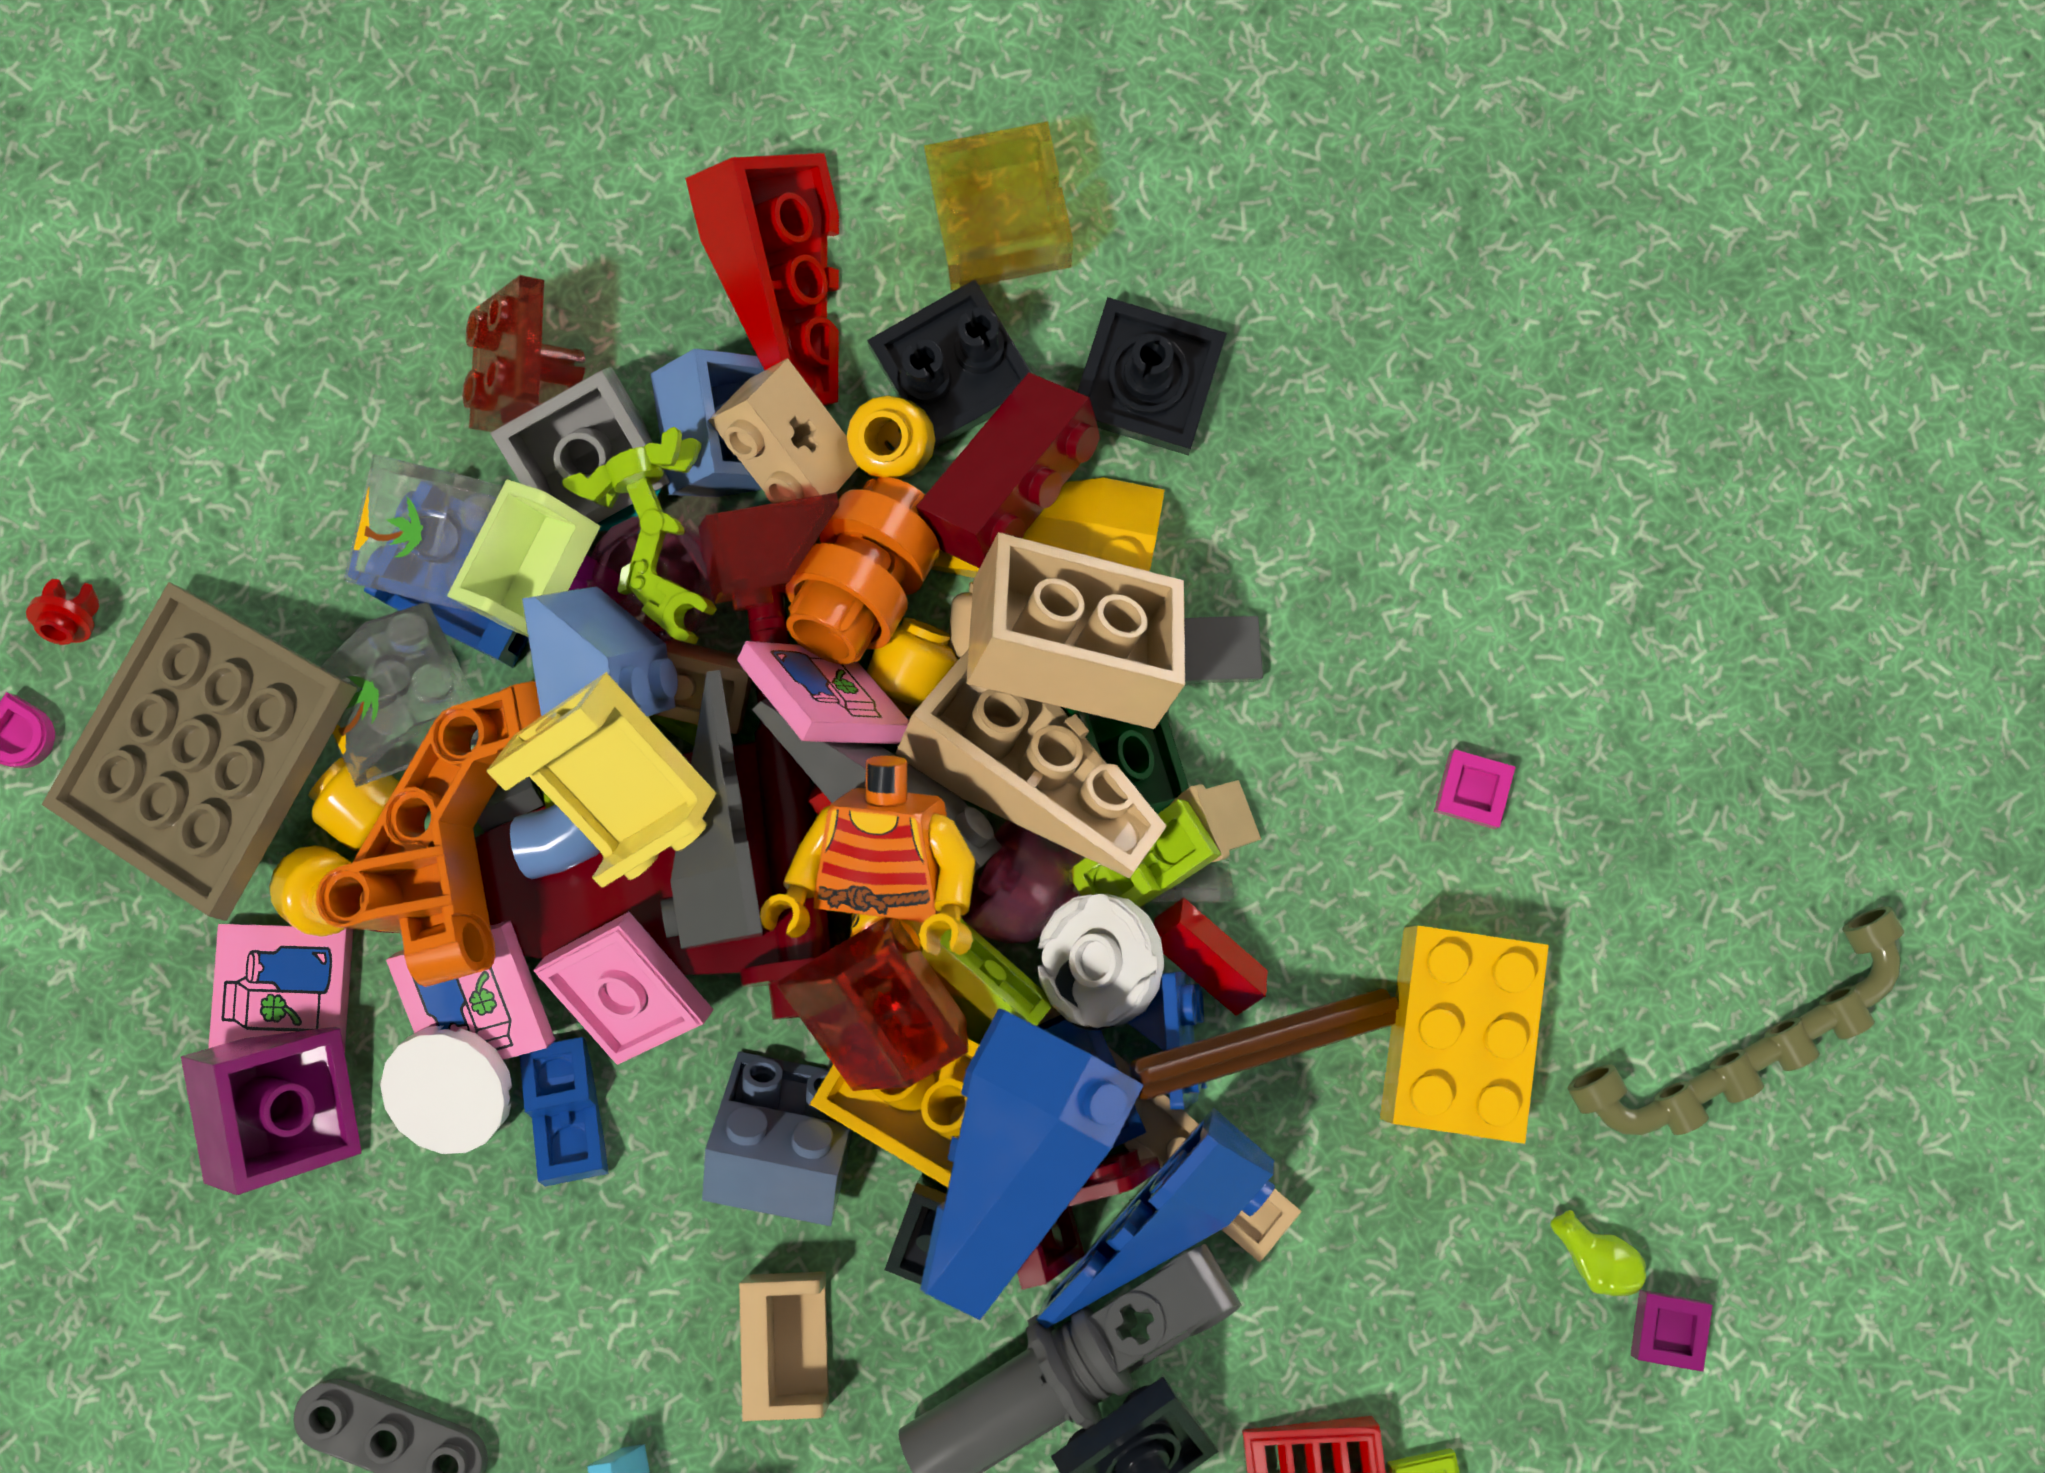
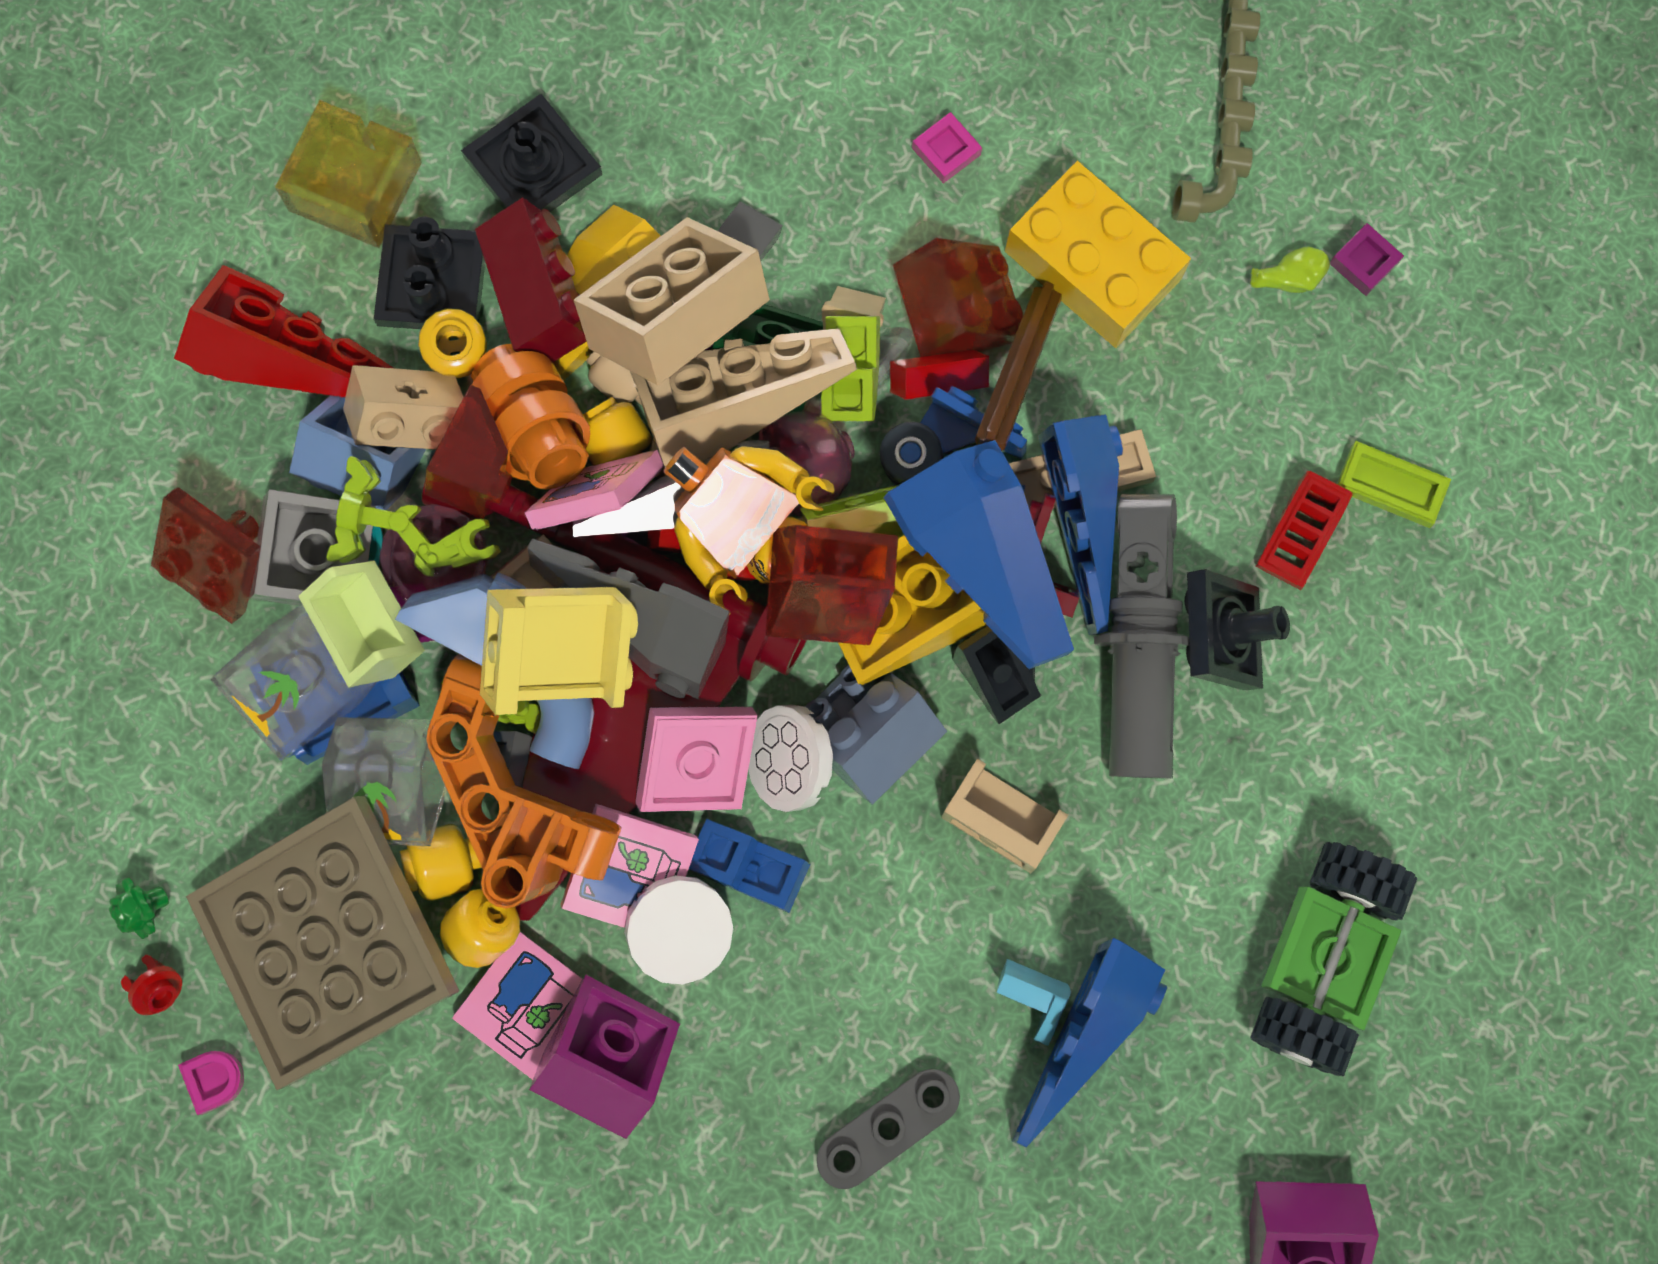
camera: 60 degrees left, 5 degrees down
(127, 542) = (135, 908): none -> green plant
(691, 1083) = (790, 758): none -> white tile
(1117, 950) = (895, 417): white tile -> none
(1311, 918) = (958, 297): none -> clear red slope

